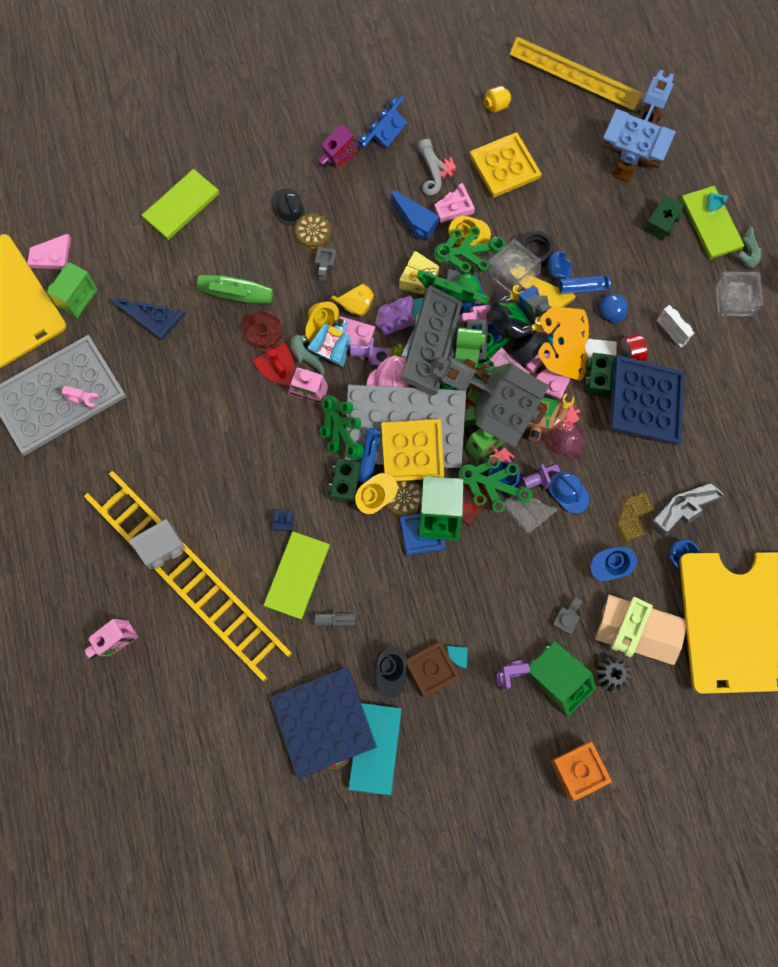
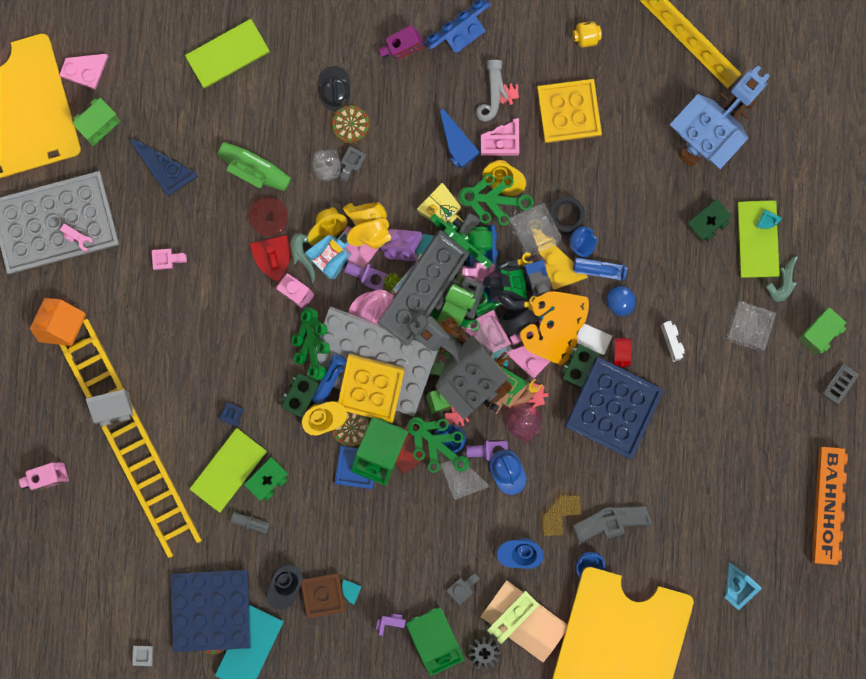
camera: 20 degrees right, 10 degrees up
(82, 482) = (57, 322): none -> orange slope
(174, 395) = (164, 259): none -> bright pink plate
(266, 793) = (142, 656): none -> light grey plate
(303, 269) = (326, 165): none -> clear helmet
(338, 560) = (256, 482): none -> green brick
(362, 312) = (371, 233): none -> yellow piece

